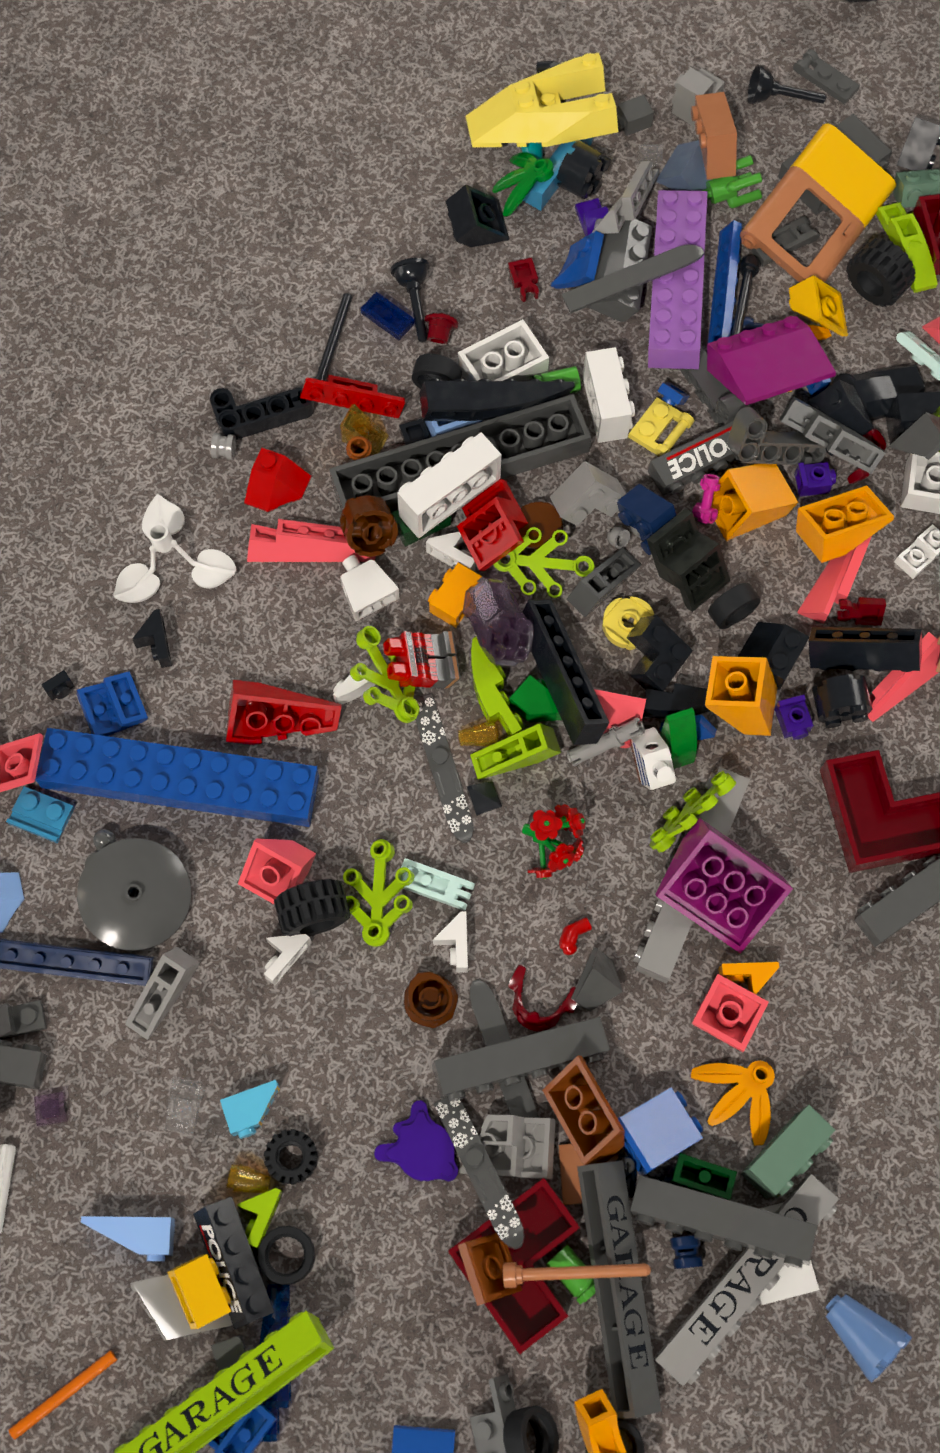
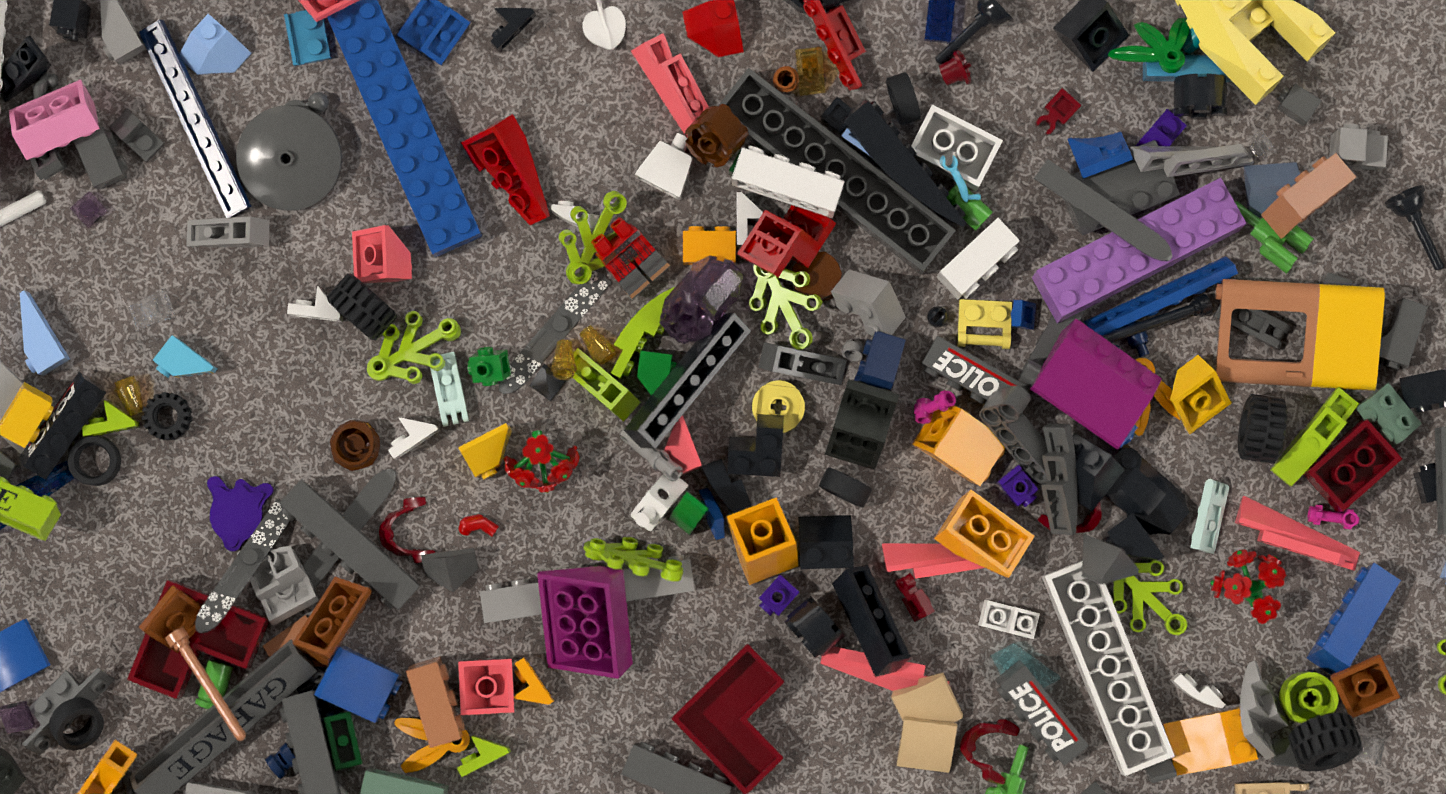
camera: 60 degrees right, 15 degrees up
(434, 825) = (489, 366): none -> green brick
(476, 769) = (564, 361): none -> clear yellow cone
(515, 882) = (486, 451): none -> yellow slope
(521, 363) = (959, 179): none -> medium azure piece
(627, 460) = (941, 321): none -> black hinge
(717, 1066) = (435, 701): none -> nougat wedge
(791, 1052) = (488, 752): none -> lime slope

